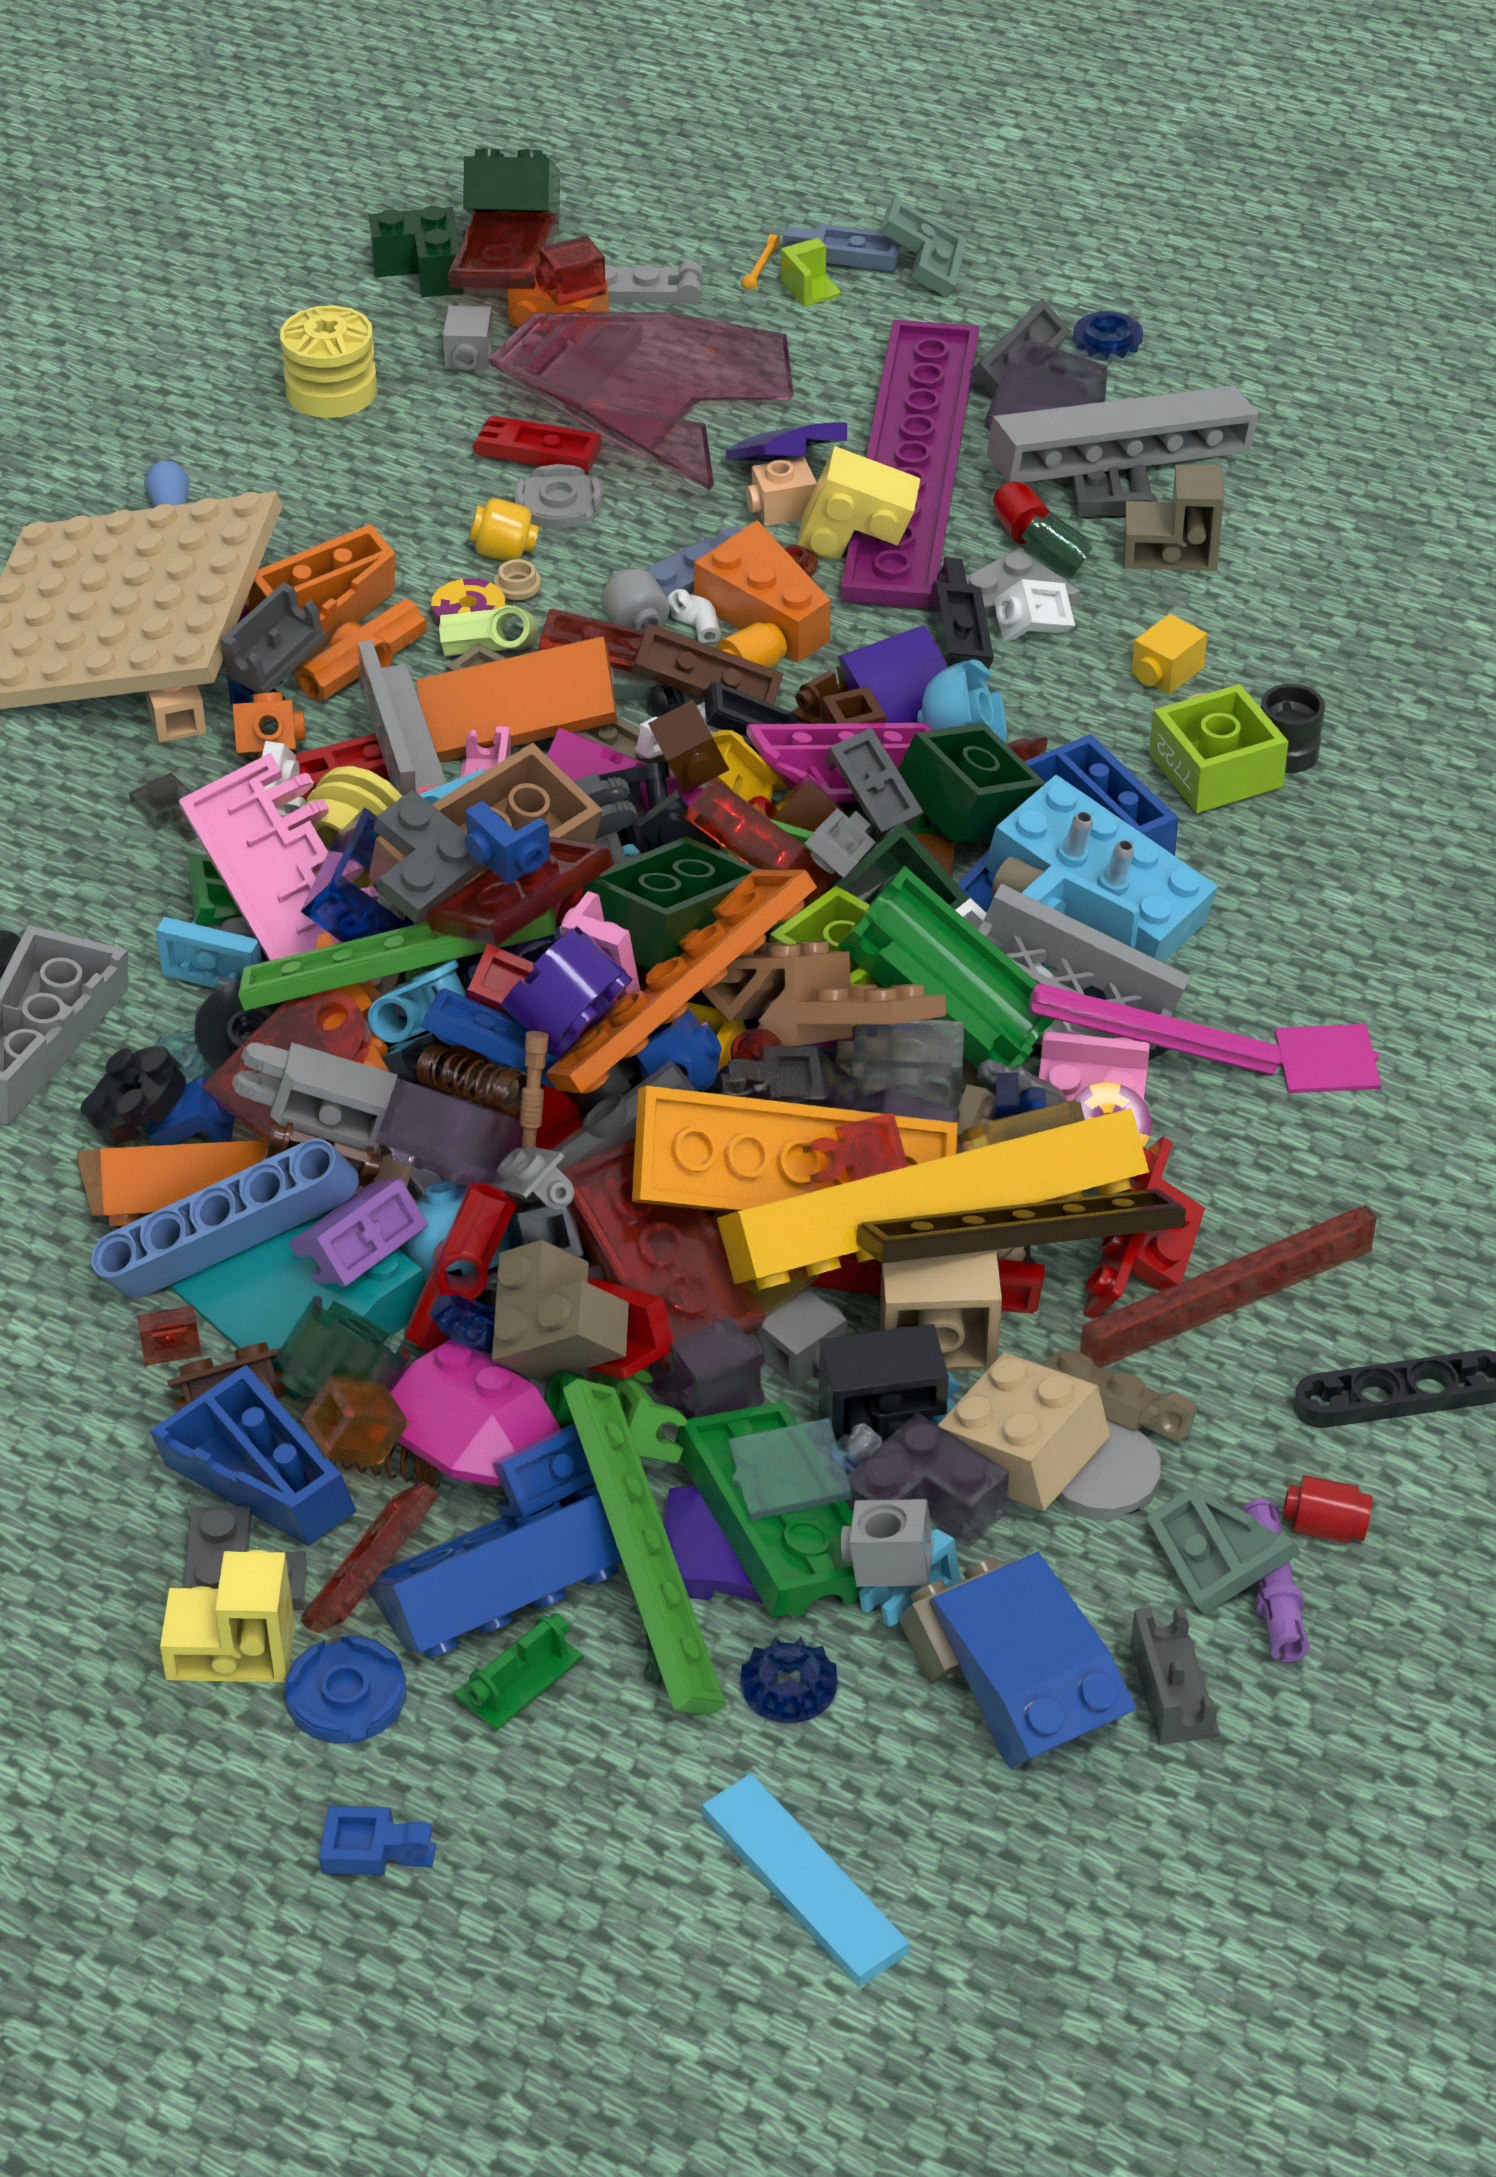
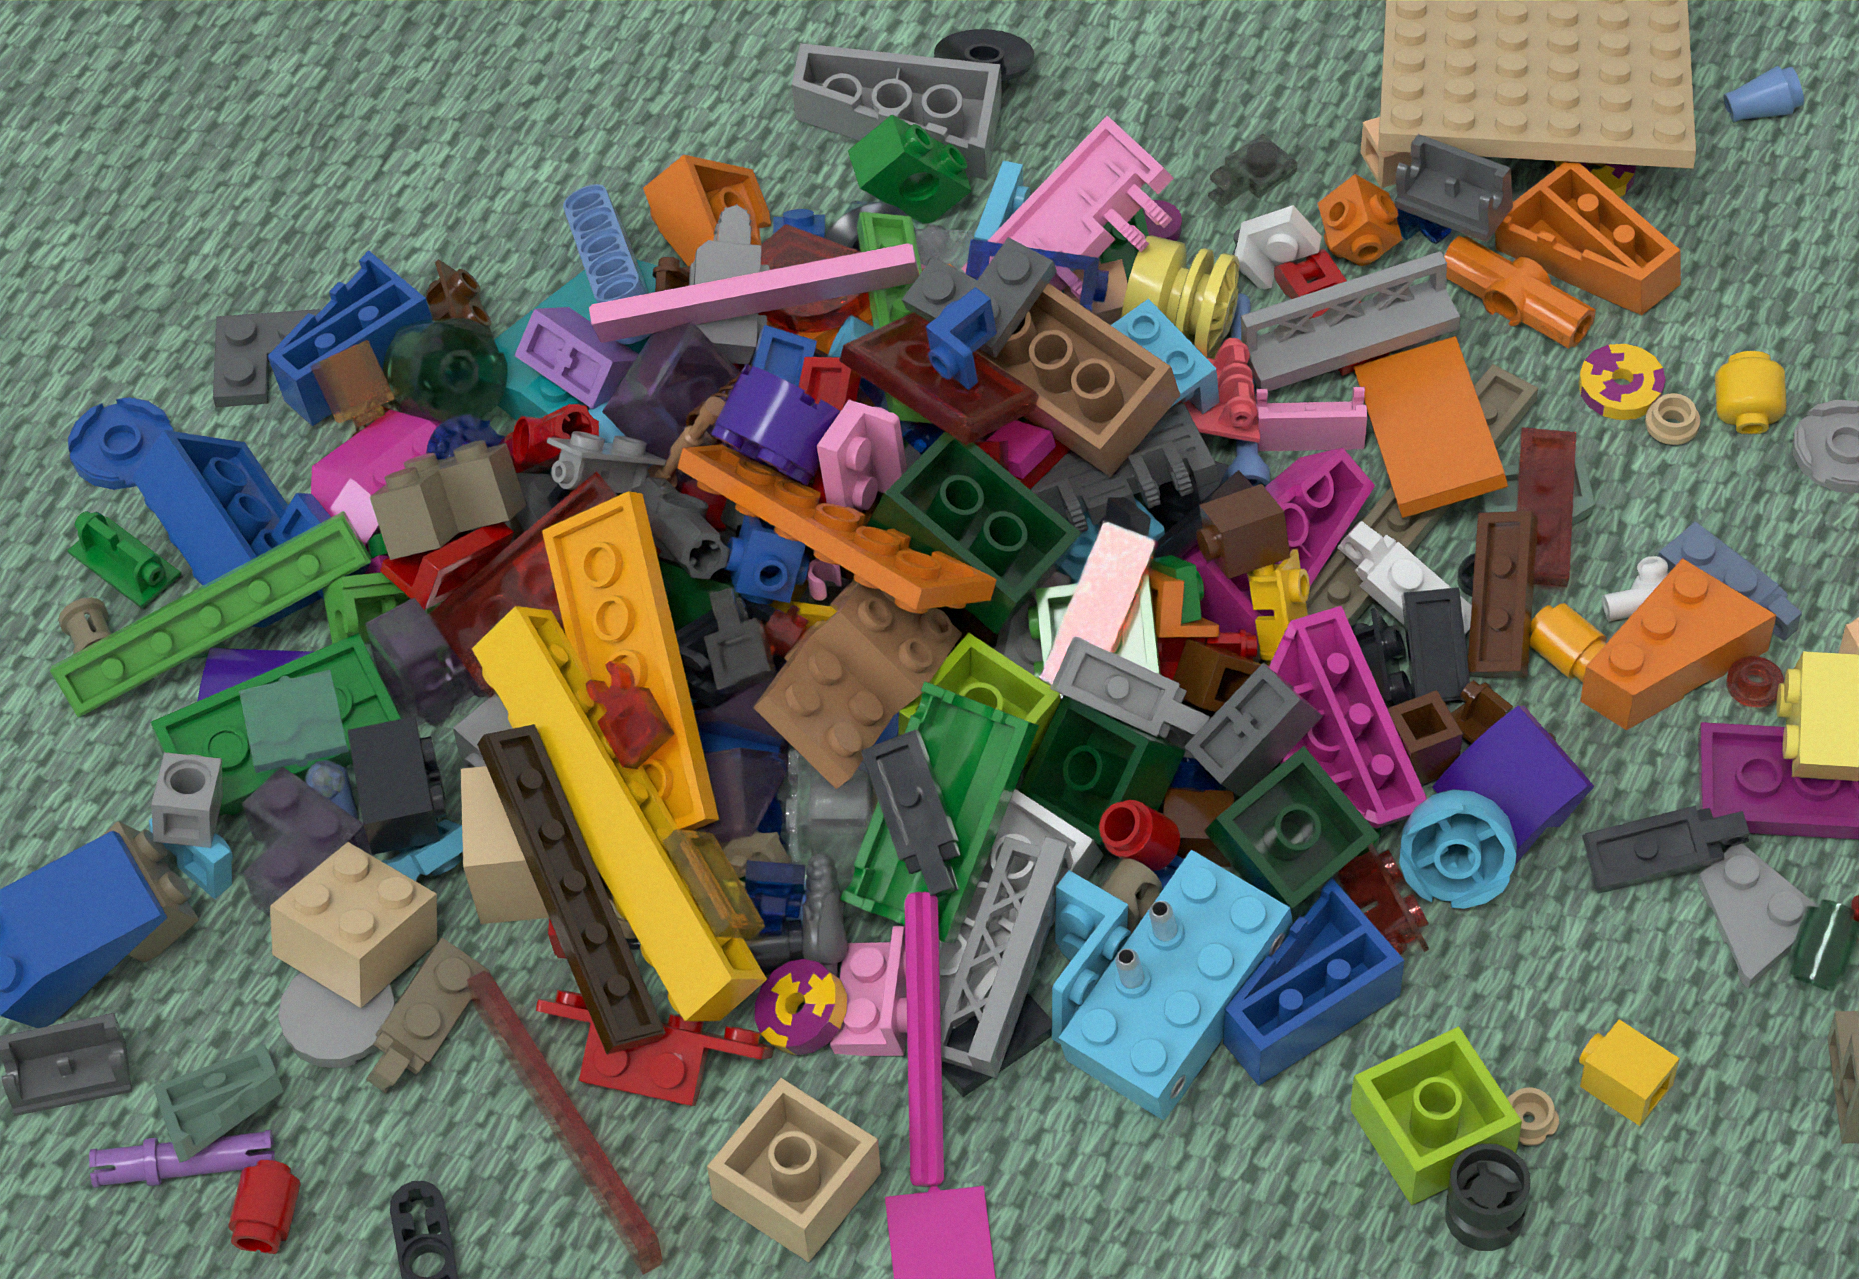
camera: 90 degrees right, 10 degrees up
(134, 1091) = (807, 190): black plate -> none
(141, 1000) = (910, 169): none -> green brick
(169, 1335) = (516, 262): clear red plate -> none
(233, 1630) = (167, 346): light yellow brick -> none
(368, 1557) = (246, 434): clear red tile -> none
(370, 1035) = (755, 293): none -> bright pink tile
(464, 630) = (1562, 395): yellowish green piece -> none
(623, 1691) = (84, 631): none -> dark tan bush
(635, 599) = (1631, 524): light grey head -> none
(789, 1700) = (100, 783): clear blue gear -> none
(967, 968) = (914, 809): none -> black hinge
(971, 865) = (1139, 834): none -> red brick
(1033, 607) = (1693, 927): white bracket -> none
(1283, 1122) = (794, 1169): none -> tan brick

